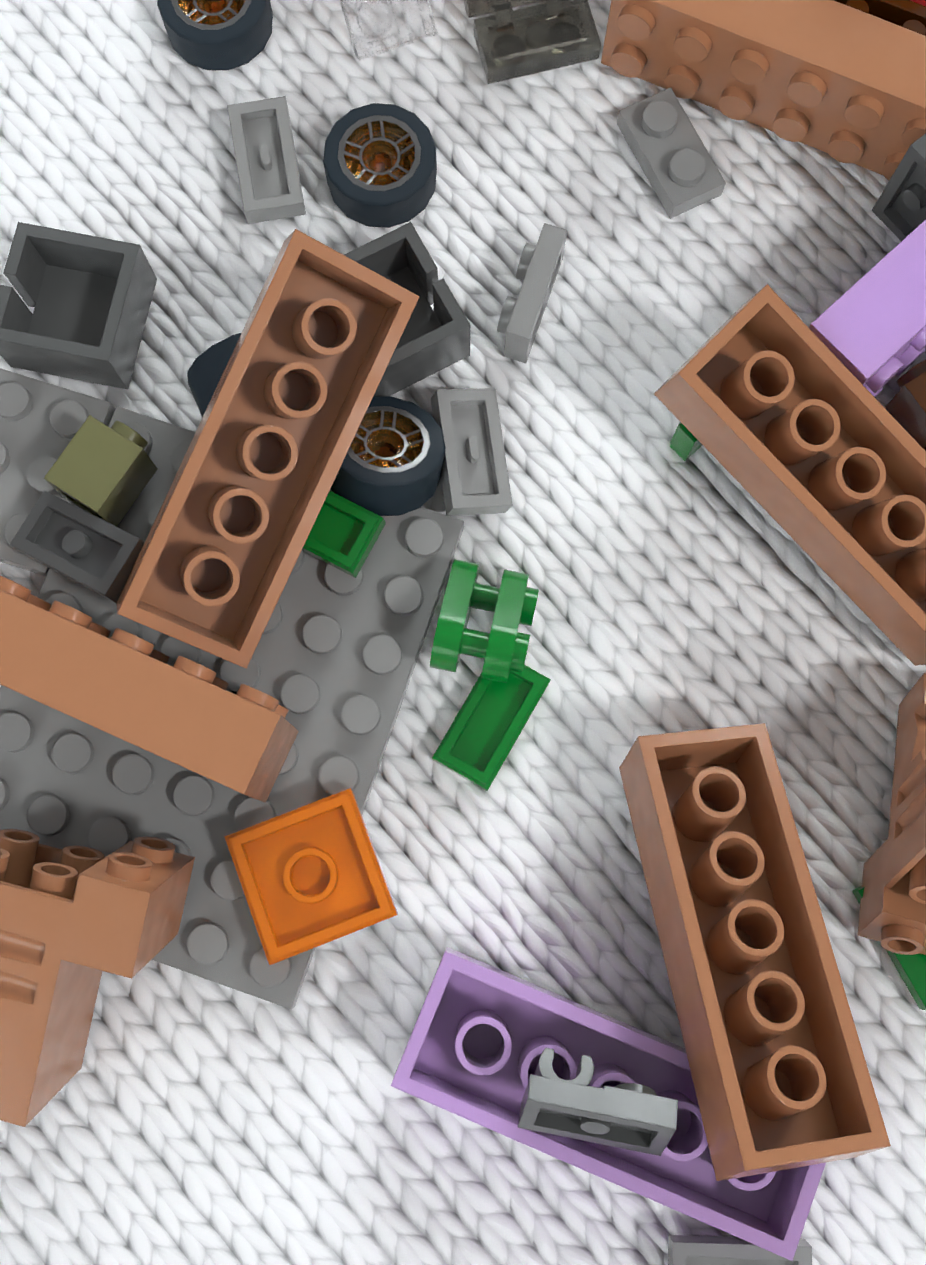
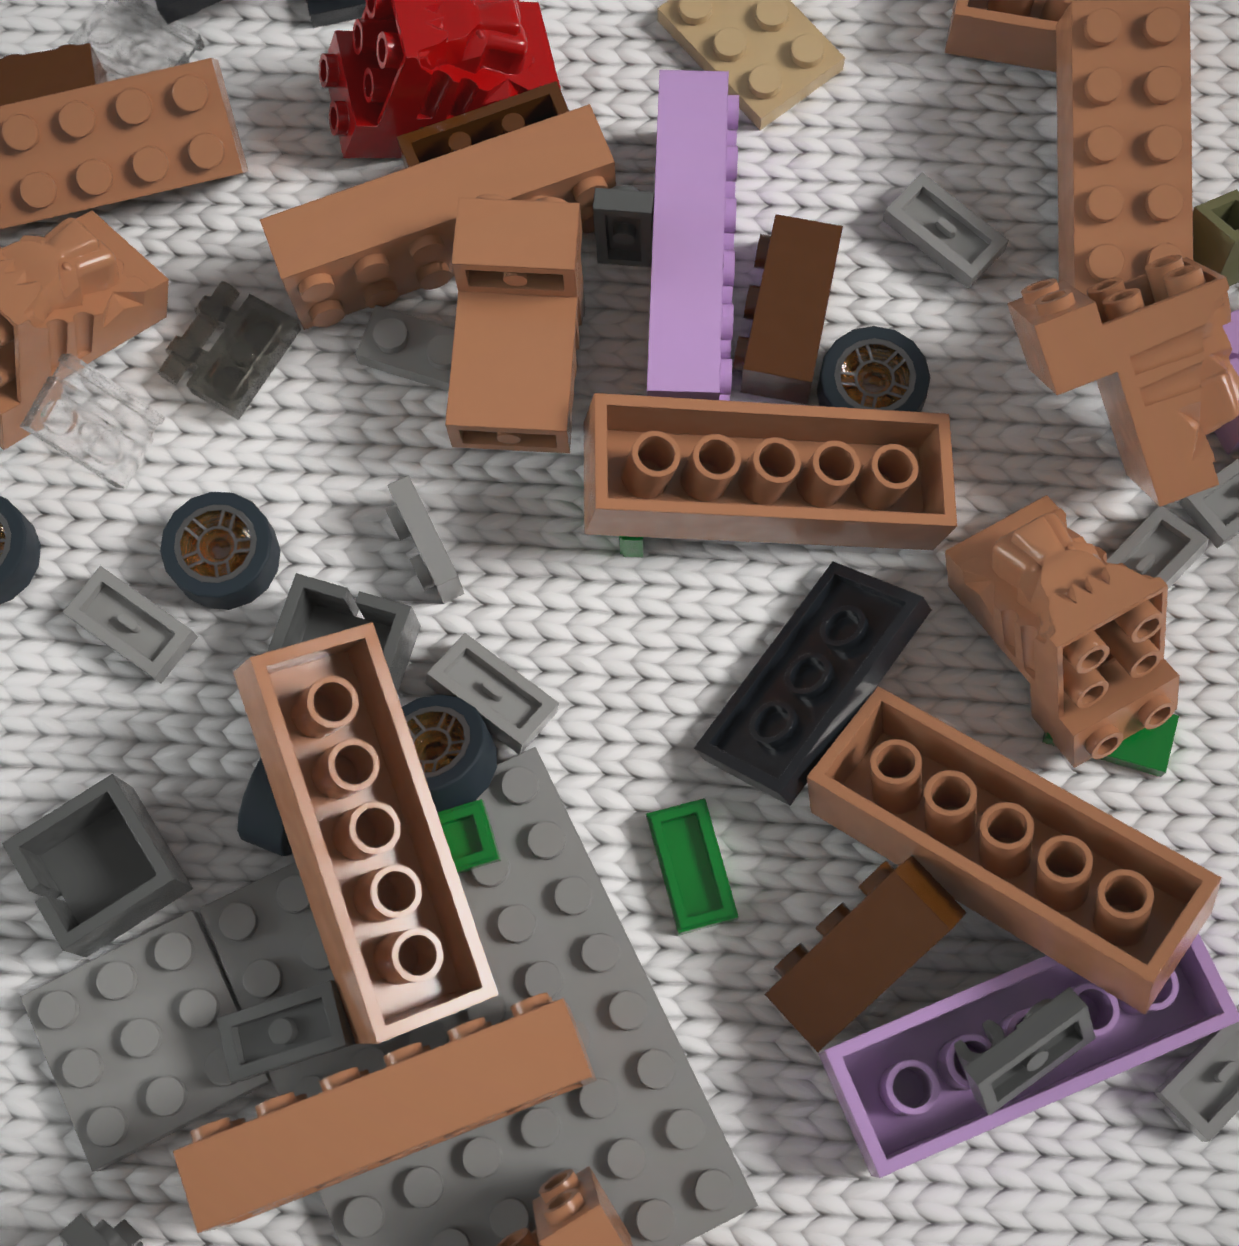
camera: 40 degrees left, 5 degrees down
(103, 469) = (245, 960): olive brick -> none
(310, 876) = (681, 1097): orange tile -> none
(502, 647) = (652, 805): green brick -> none
(552, 908) = (863, 950): none -> reddish brown brick
(721, 671) = (812, 680): none -> black plate
(764, 178) = (515, 323): none -> nougat brick

